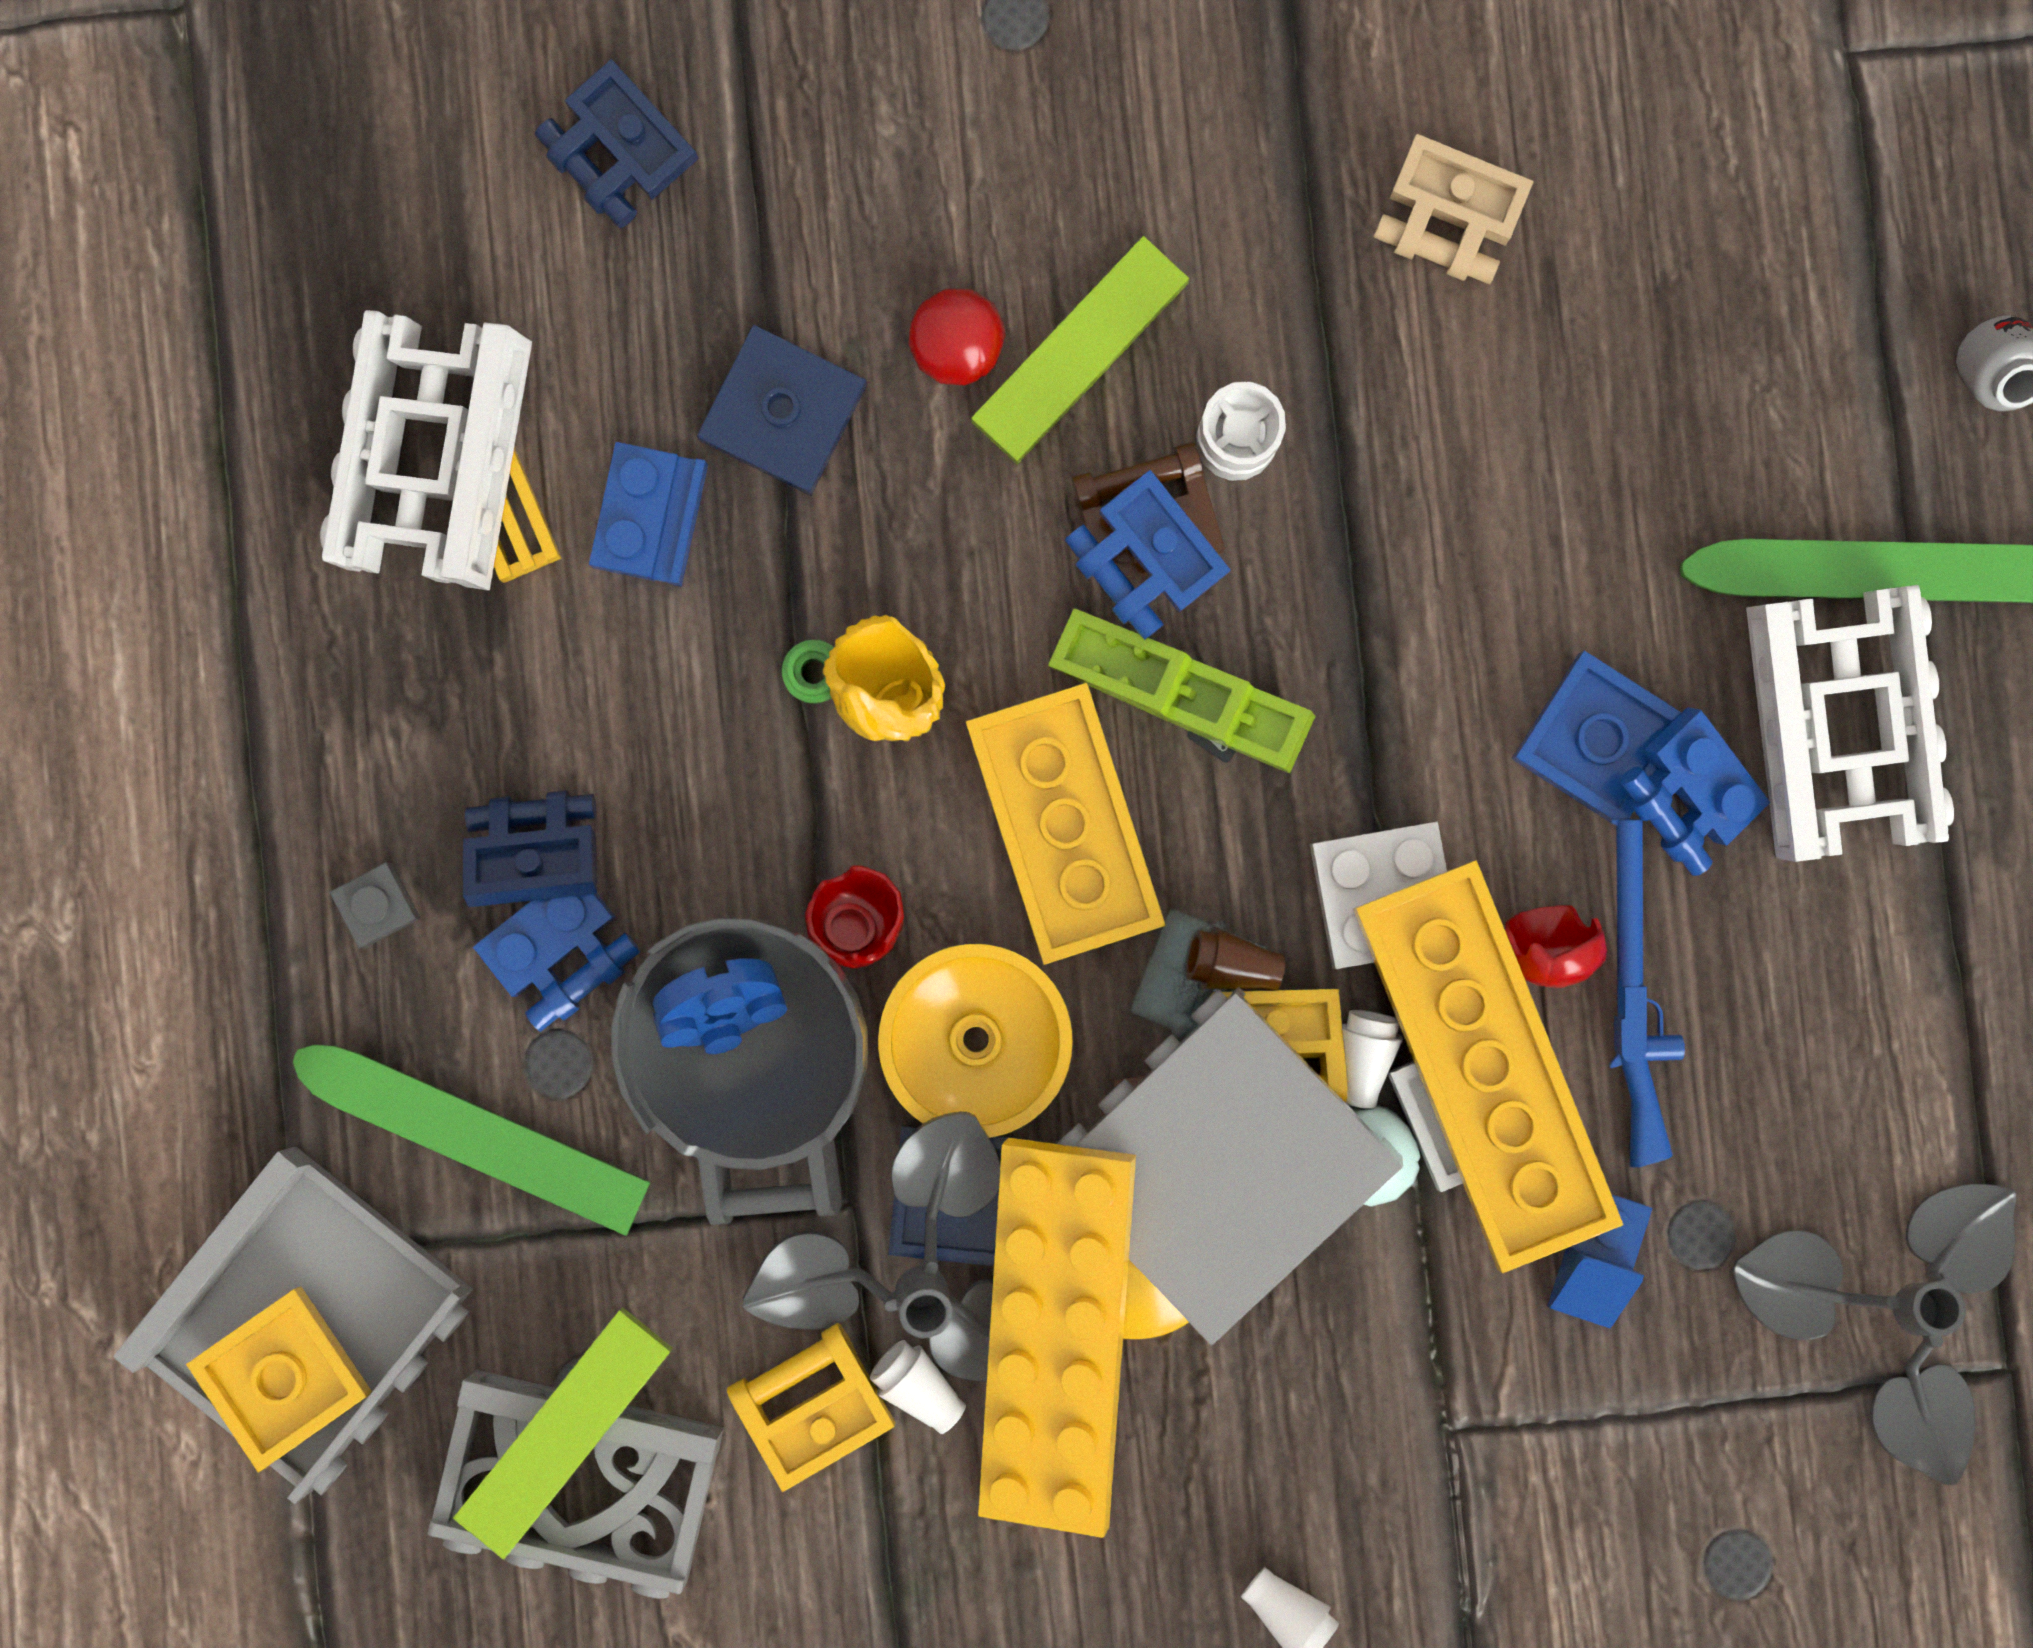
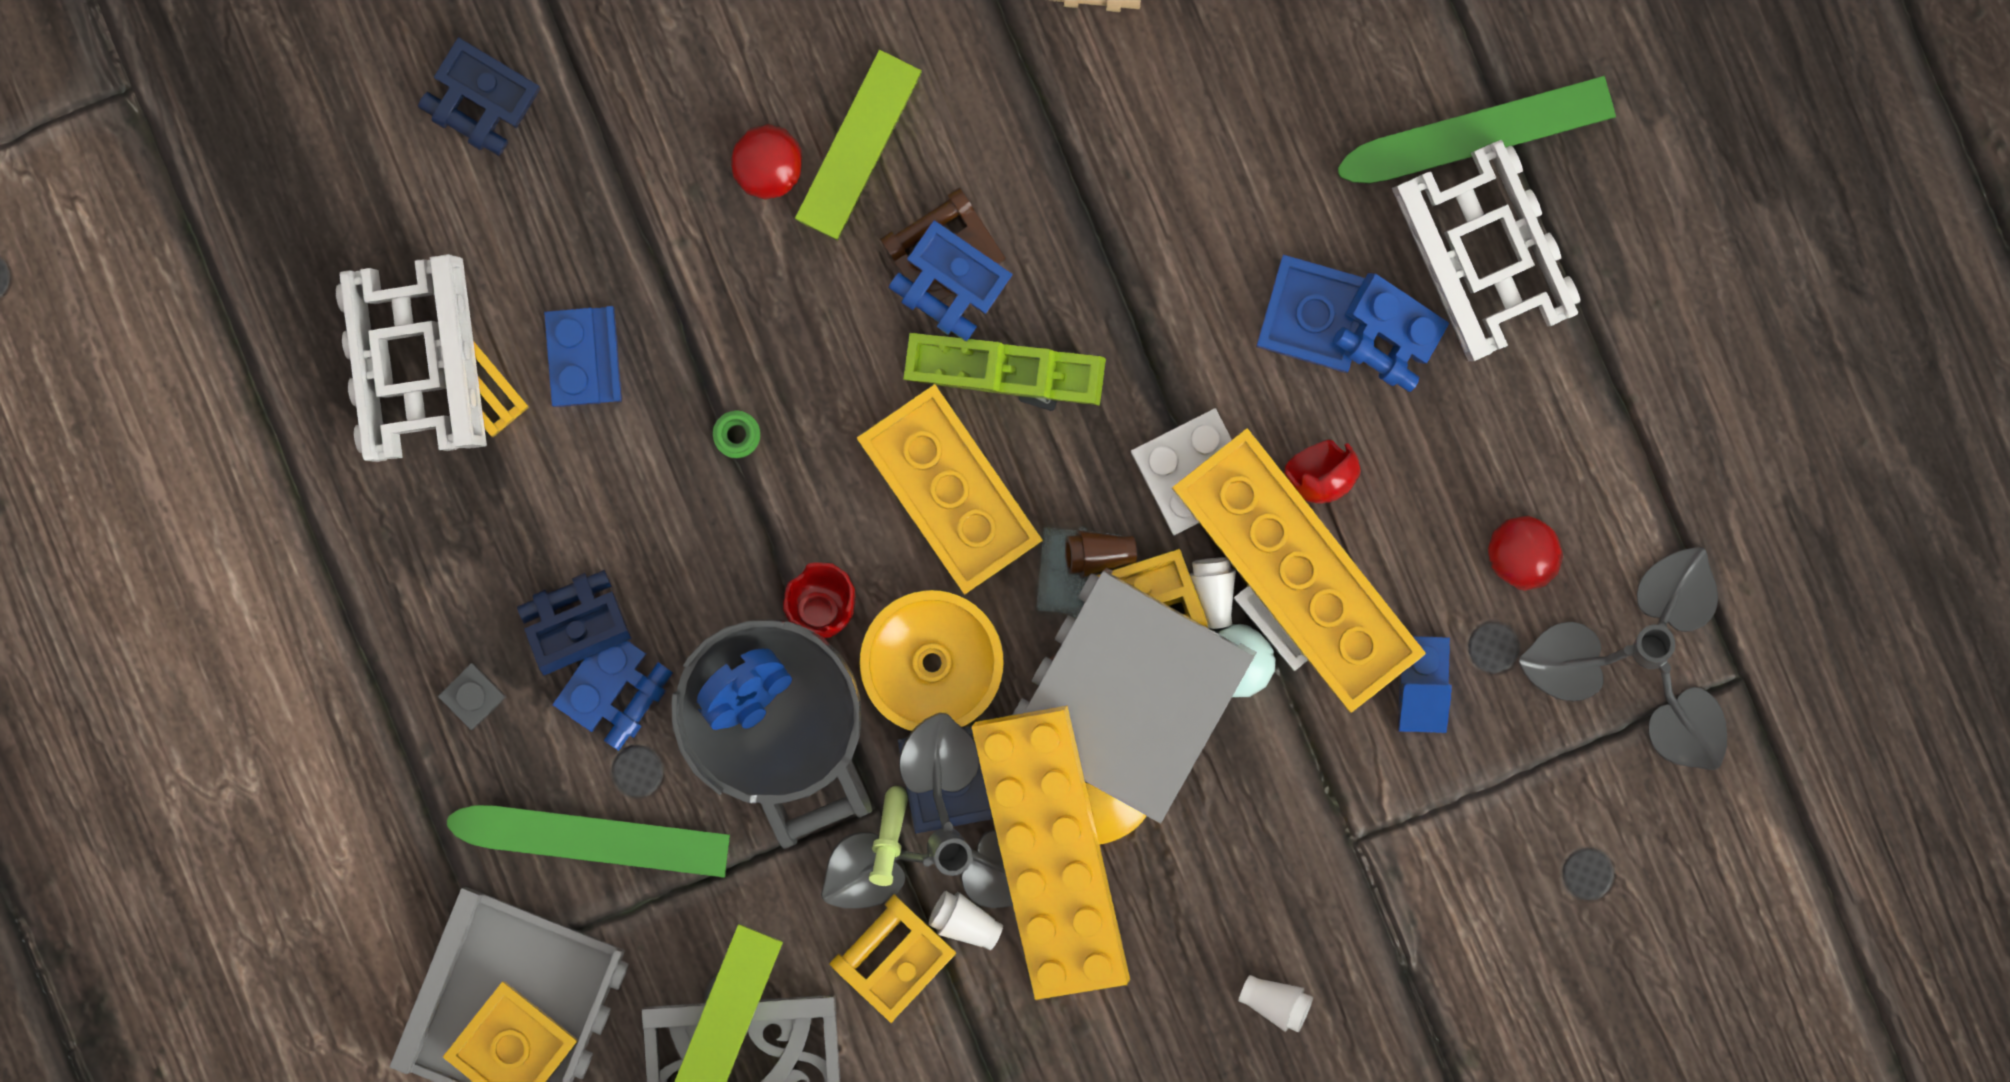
camera: 15 degrees left, 0 degrees up
(782, 410) = (656, 252): dark blue plate -> none
(846, 1261) = (887, 845): none -> yellowish green piece
(884, 680) = (790, 426): yellow hair -> none
(1240, 430) = (990, 171): white wheel -> none
(1631, 1043) = (1402, 527): blue piece -> none
(1781, 1126) = (1525, 553): none -> red hair

